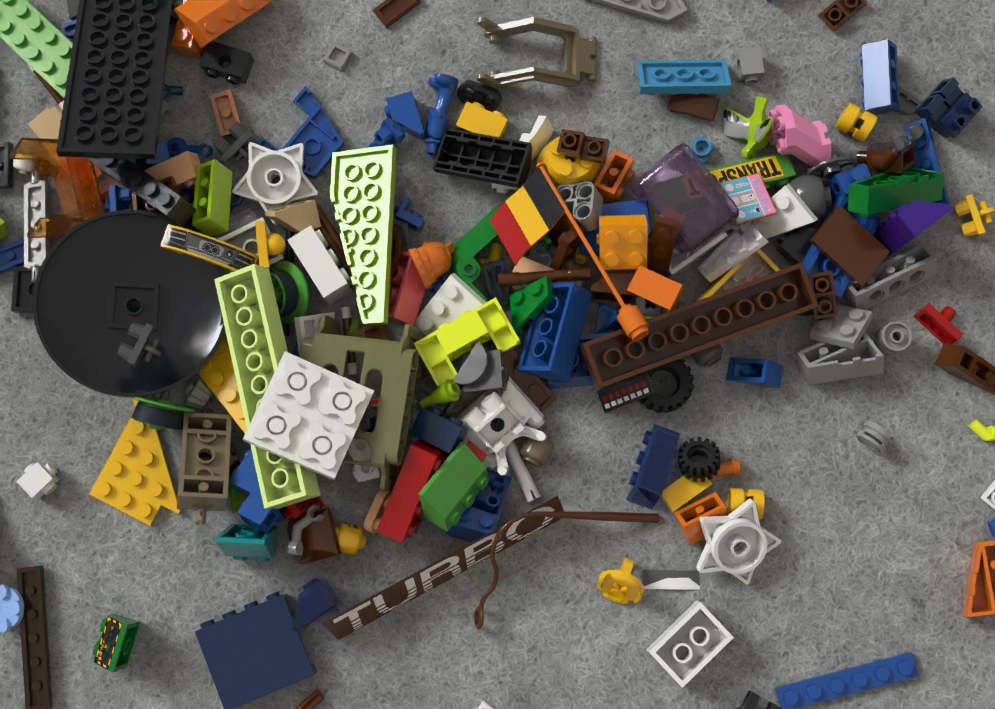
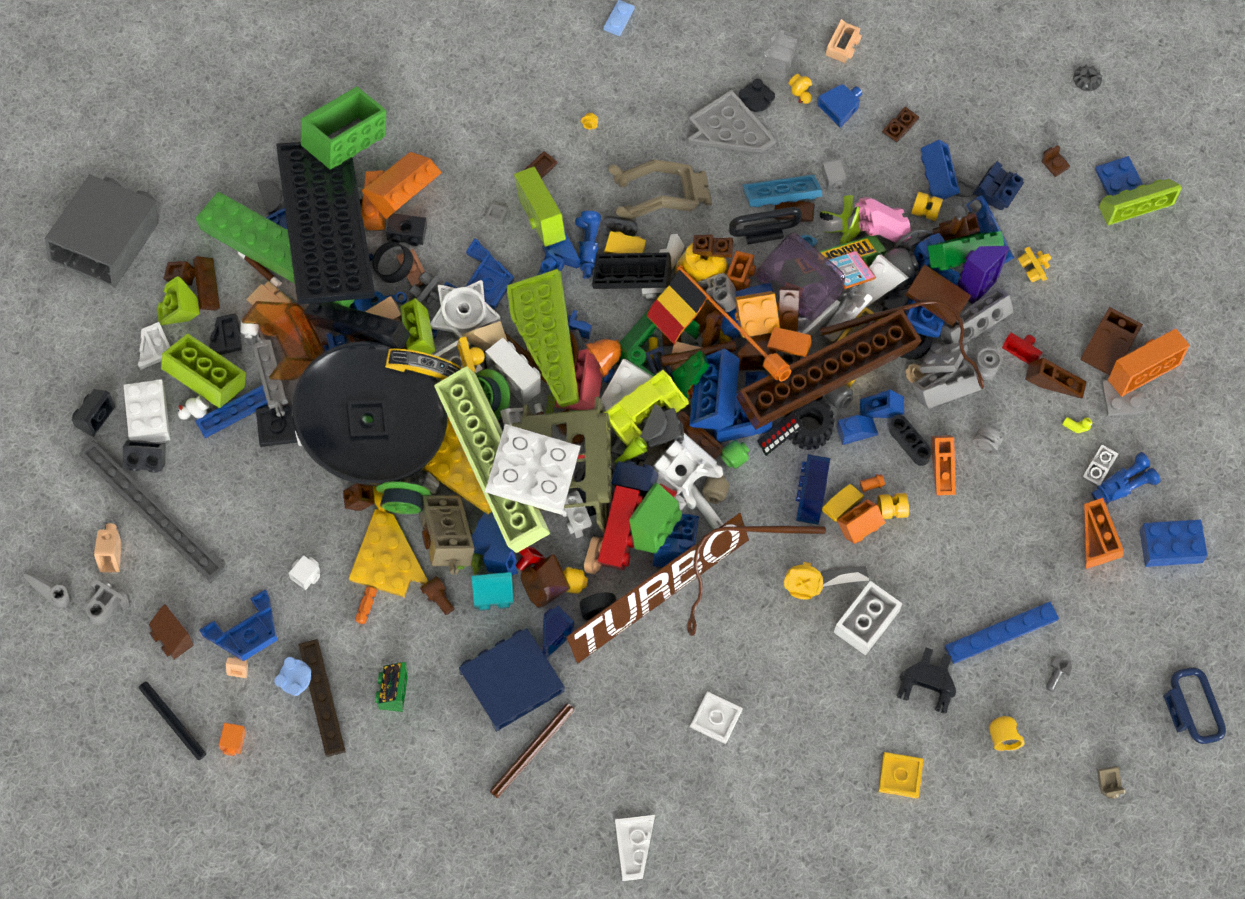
camera: 15 degrees left, 15 degrees down
(104, 530) = (365, 605): none -> orange axle
(112, 402) = (358, 497): none -> reddish brown brick
(133, 354) = (384, 431): dark grey hips -> none
(184, 526) = (436, 592): none -> reddish brown pin
(217, 108) = (402, 272): none -> black tyre
(295, 545) = (532, 583): light grey arm -> none
(371, 579) = (596, 603): none -> black tyre
(385, 59) = (539, 206): none -> lime brick
(567, 408) = (735, 454): none -> bright green head
(654, 121) = (767, 230): none -> black bar
(699, 448) = (849, 476): black tyre -> none
(719, 397) = (856, 429): none -> blue slope
(735, 542) = (903, 534): white plate -> none
(759, 264) = (868, 318): none -> reddish brown piece
(790, 428) = (908, 431): none -> black beam
(801, 337) = (914, 373): none -> tan animal
(816, 457) = (943, 464): none -> orange slope
(824, 291) = (925, 331): reddish brown slope -> none

